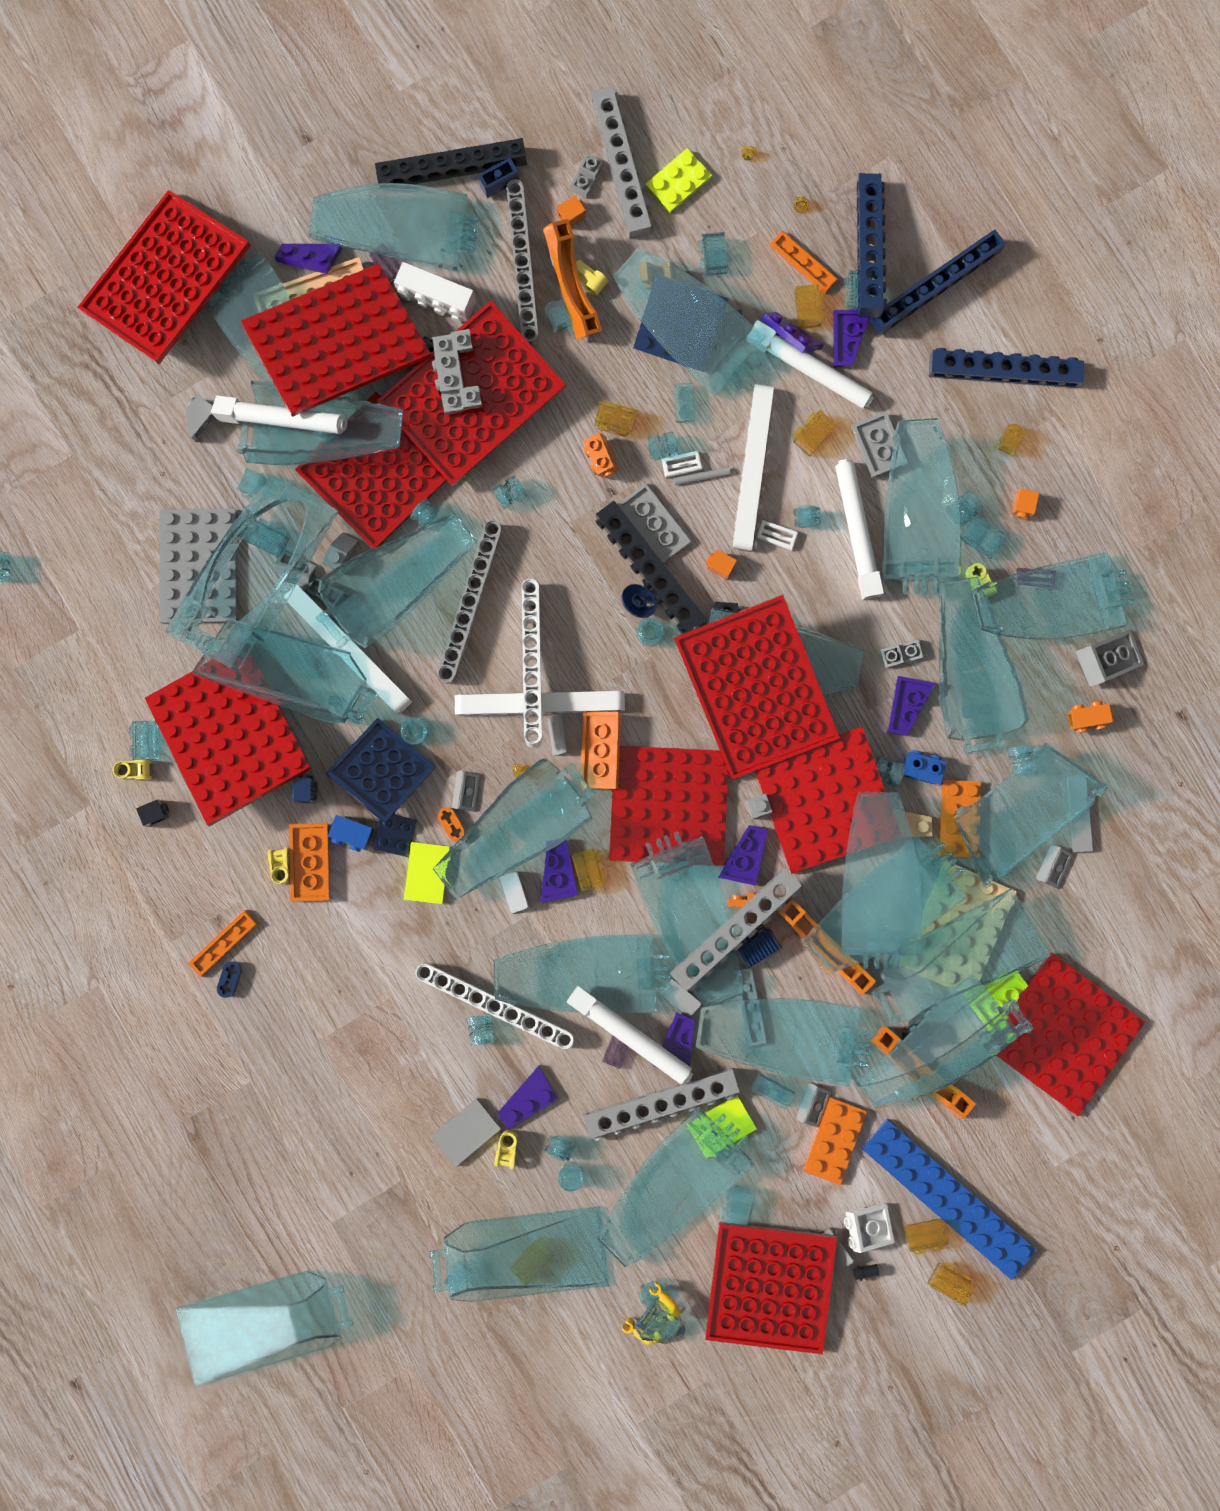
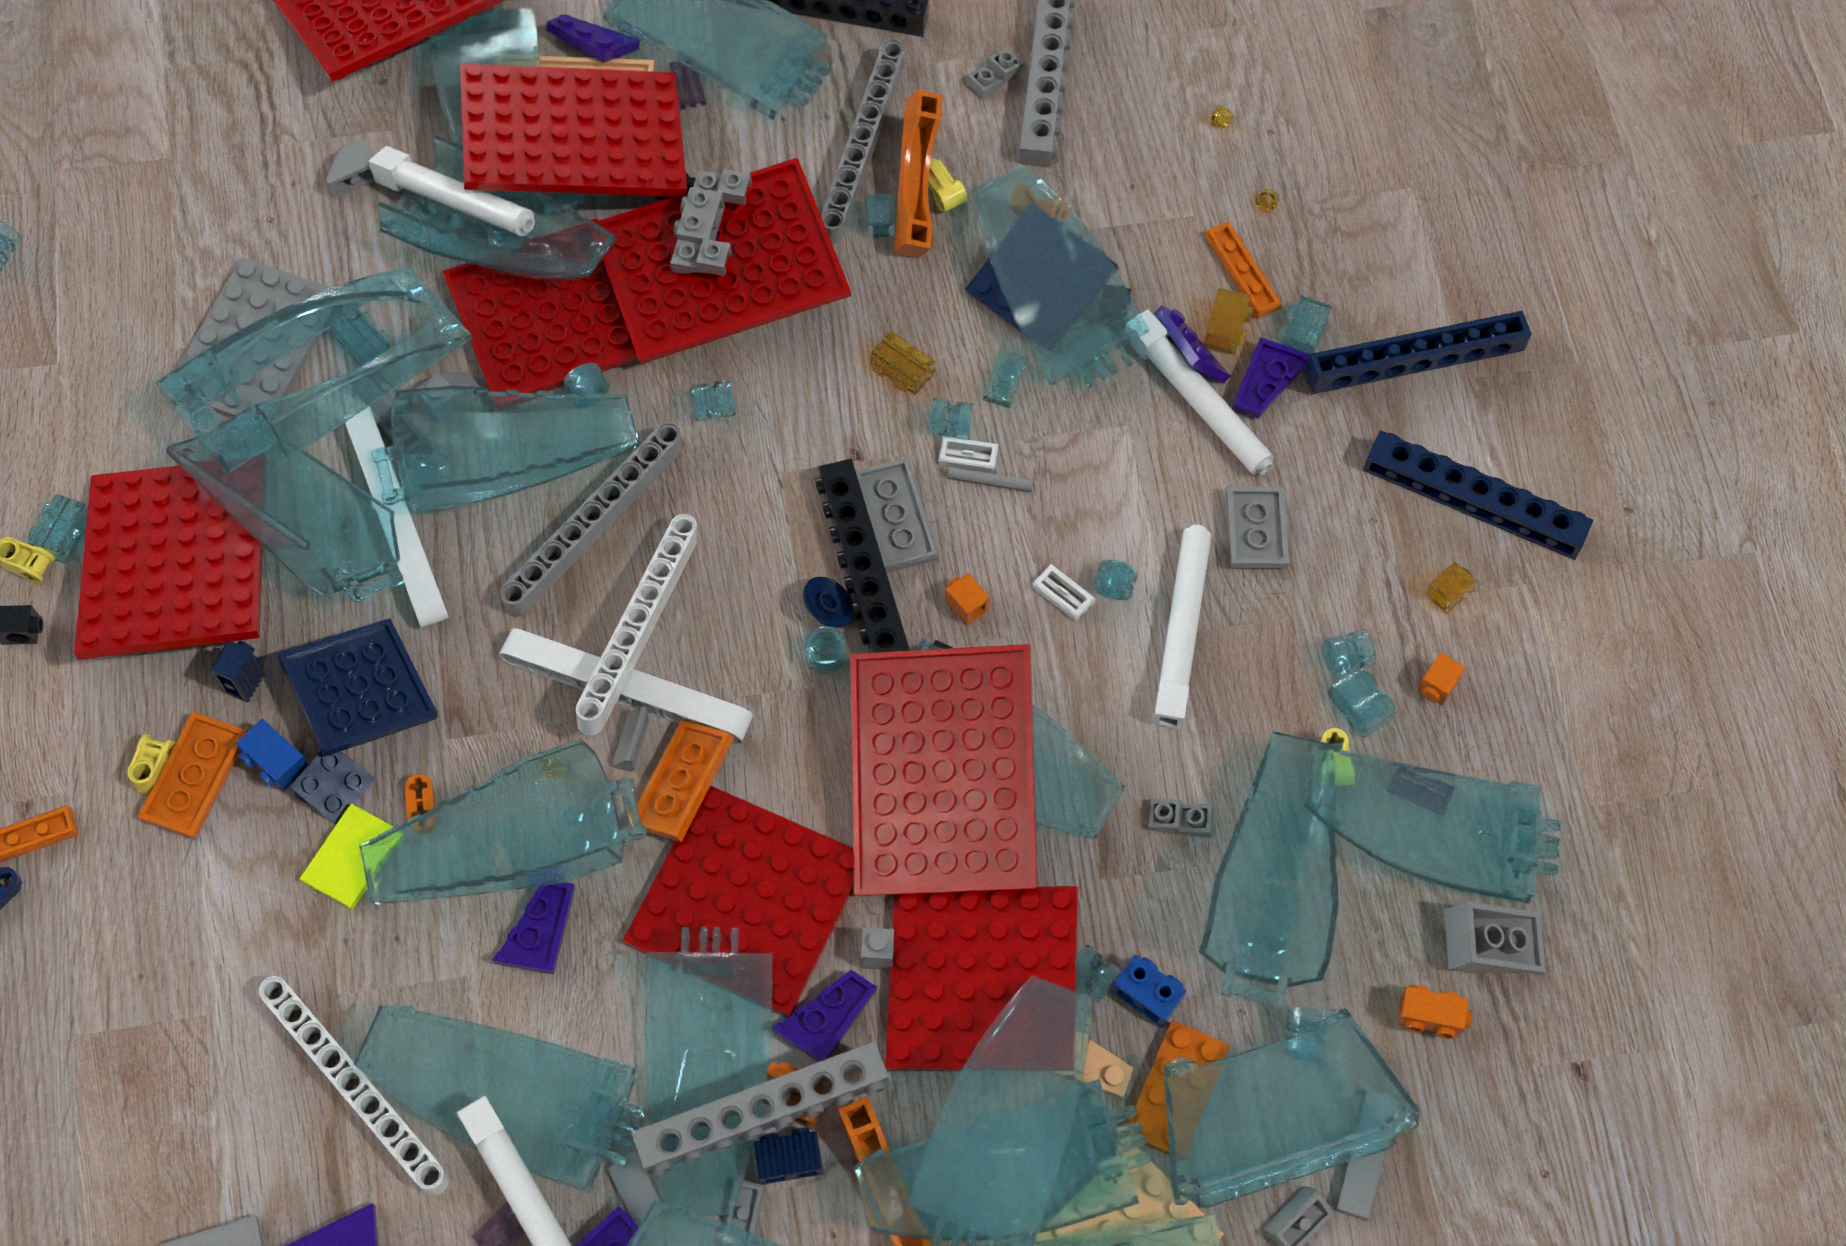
camera: 20 degrees right, 20 degrees down
(251, 483) = (375, 262): clear light blue brick -> none
(406, 731) = (427, 645): clear light blue wheel -> none
(435, 293) = (728, 127): white brick -> none
(465, 791) = (464, 765): light grey slope -> none
(480, 1029) = (312, 1114): clear light blue wheel -> none
(497, 177) = (871, 31): dark blue brick -> none
(514, 892) = (463, 933): slope -> none
(573, 210) = (957, 104): orange brick -> none
(588, 869) = (584, 941): clear yellow brick -> none
(601, 456) = (860, 399): orange brick -> none
(678, 181) = (1113, 119): neon yellow plate -> none
(714, 253) = (1124, 215): clear light blue brick -> none
(753, 467) = (1064, 493): white beam -> none
(814, 432) = (1170, 478): clear yellow brick -> none
(868, 185) = (1339, 274): dark blue brick -> none
(906, 704) = (1161, 889): dark purple wing -> none
(921, 509) = (1284, 626): clear light blue windscreen -> none

